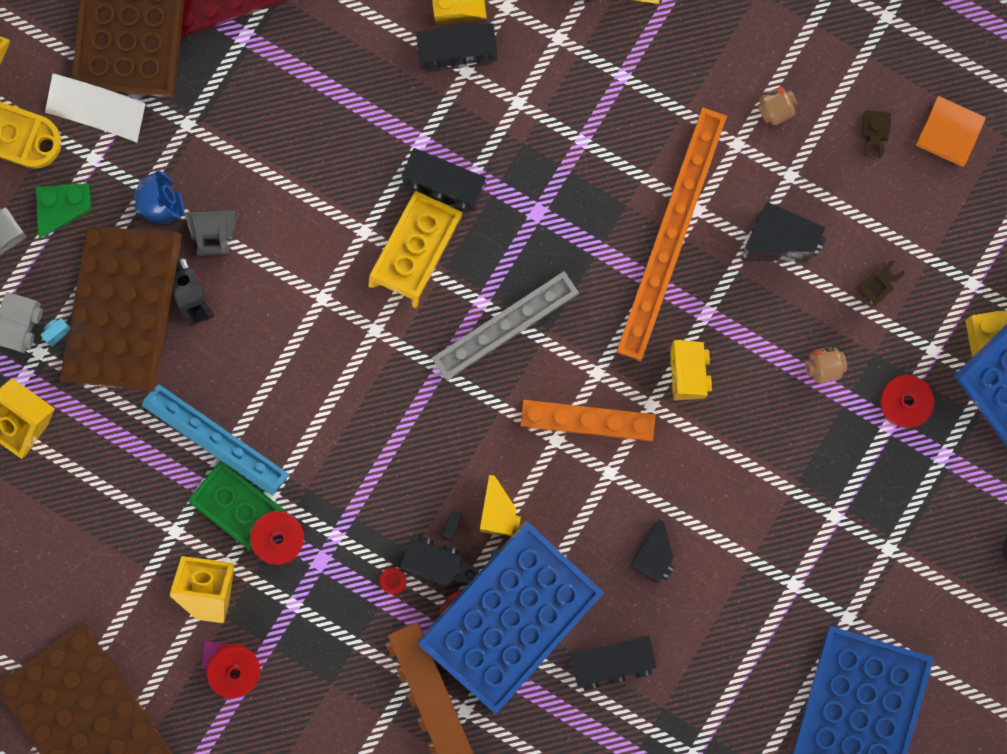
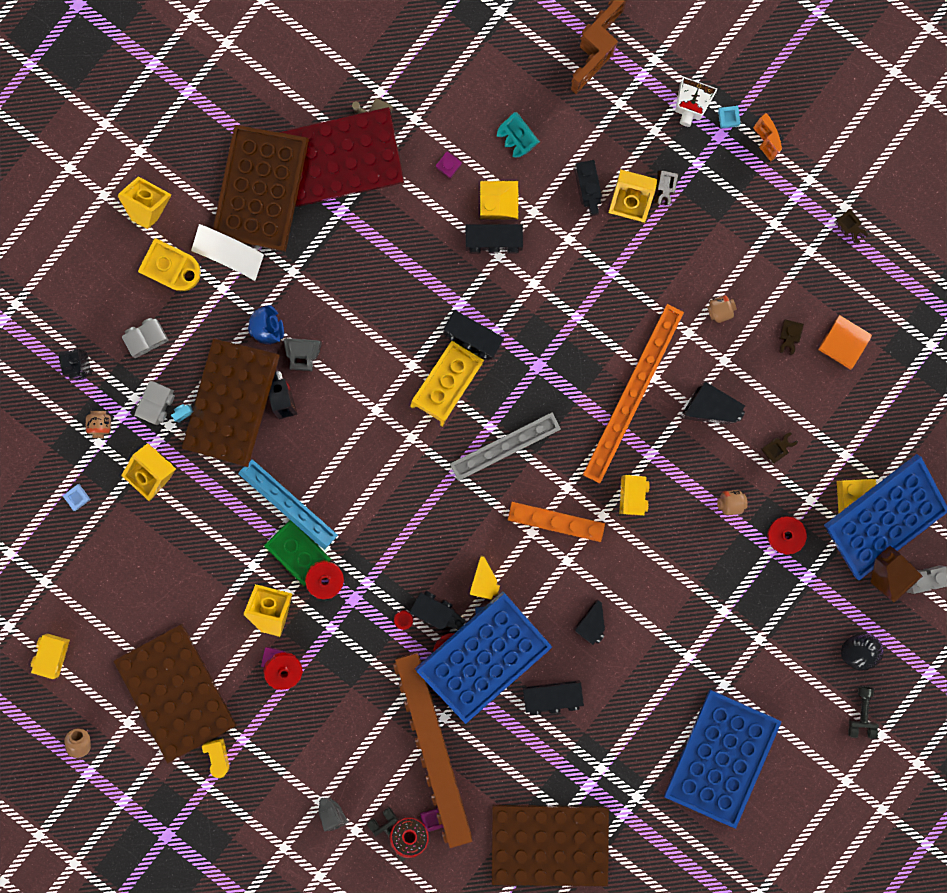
camera: 10 degrees right, 5 degrees up
(61, 205) = (195, 321): green wing -> none
(452, 525) = (450, 585): black tile -> none

